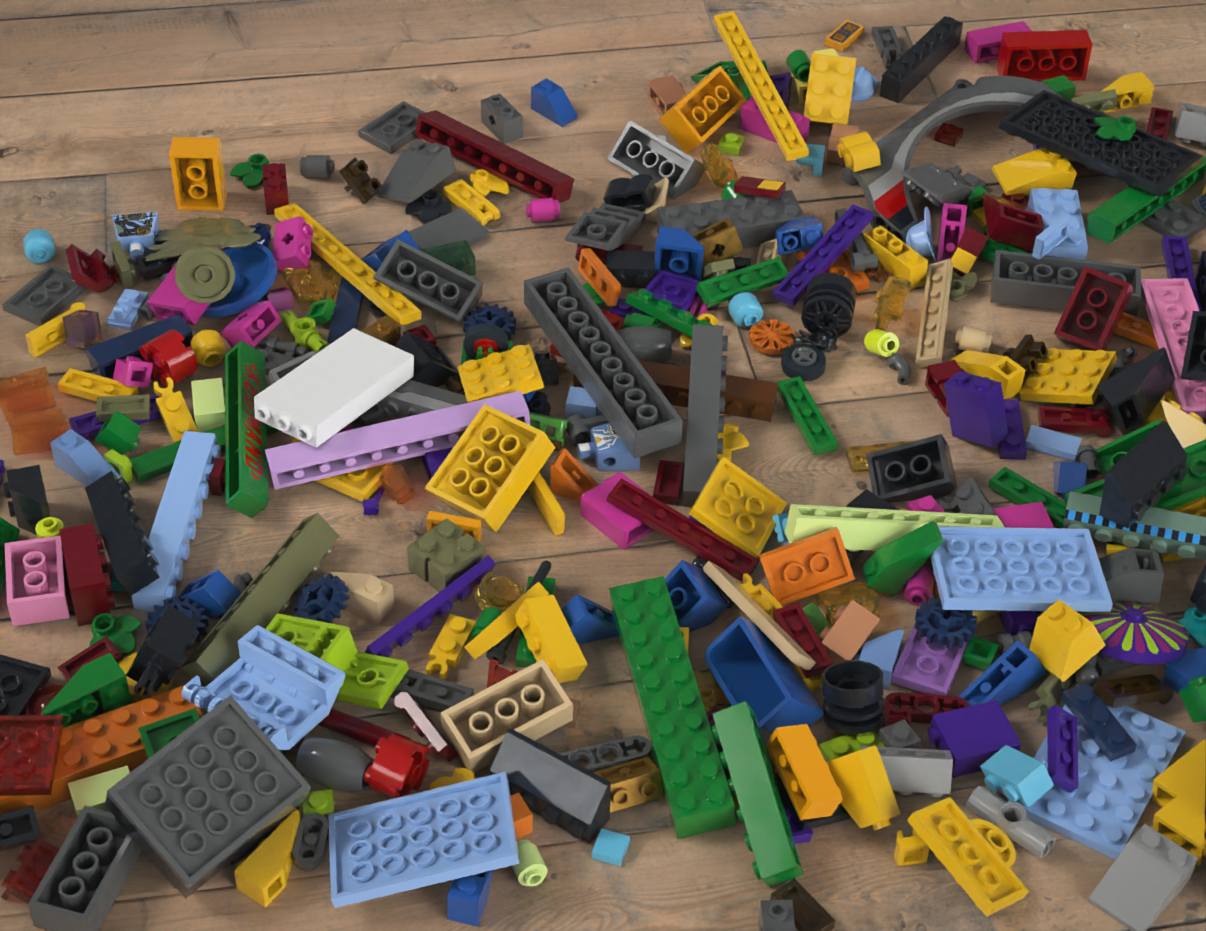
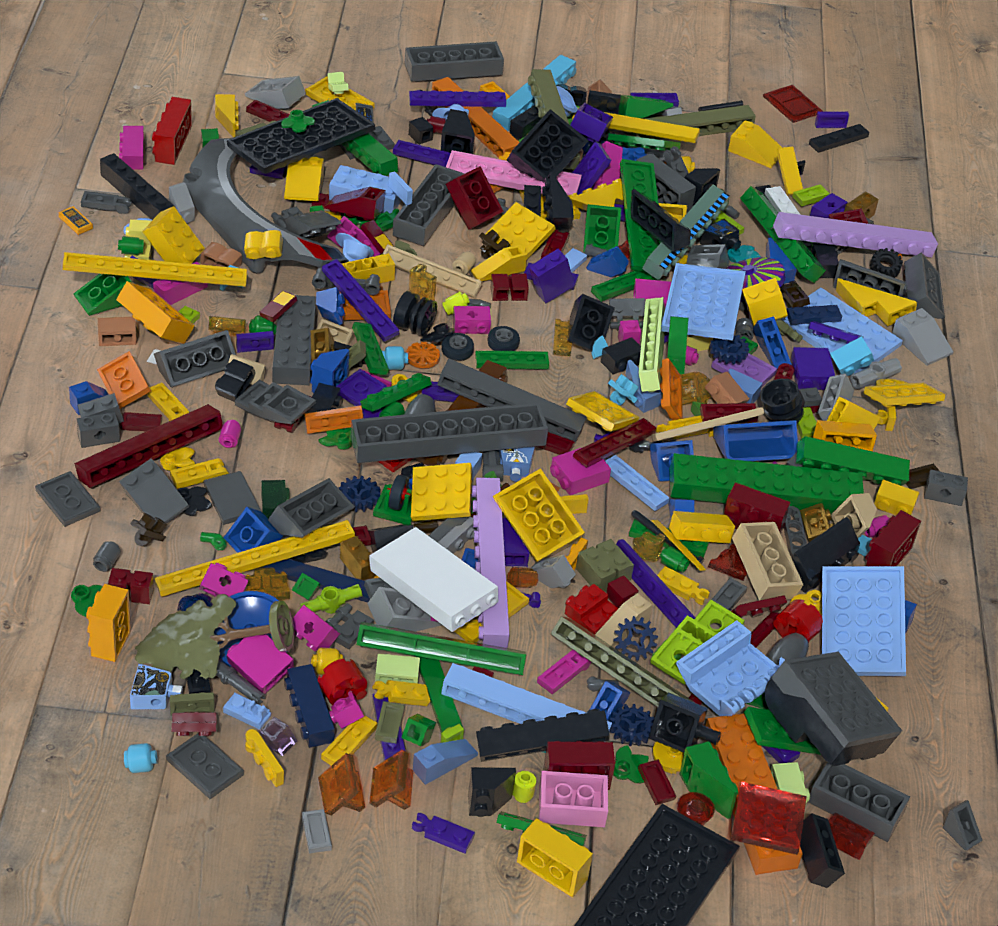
camera: 80 degrees left, 0 degrees up
(247, 545) = (563, 671): none -> dark pink plate
(372, 554) = (590, 608): none -> red plate
(374, 237) = (215, 539): none -> green arm
(408, 582) = (620, 591): none -> dark red brick
(414, 510) = (554, 571): none -> light grey slope
(531, 110) = (101, 406): none -> dark grey brick
(538, 148) = (140, 421): none -> dark red tile
(575, 156) = (166, 401): none -> yellow plate
(588, 118) = (124, 379): none -> orange plate
(602, 693) = (754, 506): none -> dark red brick
(603, 867) = (893, 541): none -> dark red brick
(625, 566) = (637, 483): none -> light blue plate
(639, 811) = (859, 510): none -> tan slope
(652, 856) = (876, 525): none -> dark pink brick
(706, 190) = (254, 341): none -> dark purple plate
(721, 875) = (894, 498): none -> yellow brick
(842, 401) = (503, 339): none -> black wheel
(860, 364) = (471, 319): none -> dark pink brick
(880, 488) = (598, 345): none -> medium azure tile
(912, 90) = (182, 201): none -> light grey slope
(1098, 101) = (243, 122): olive plate -> none

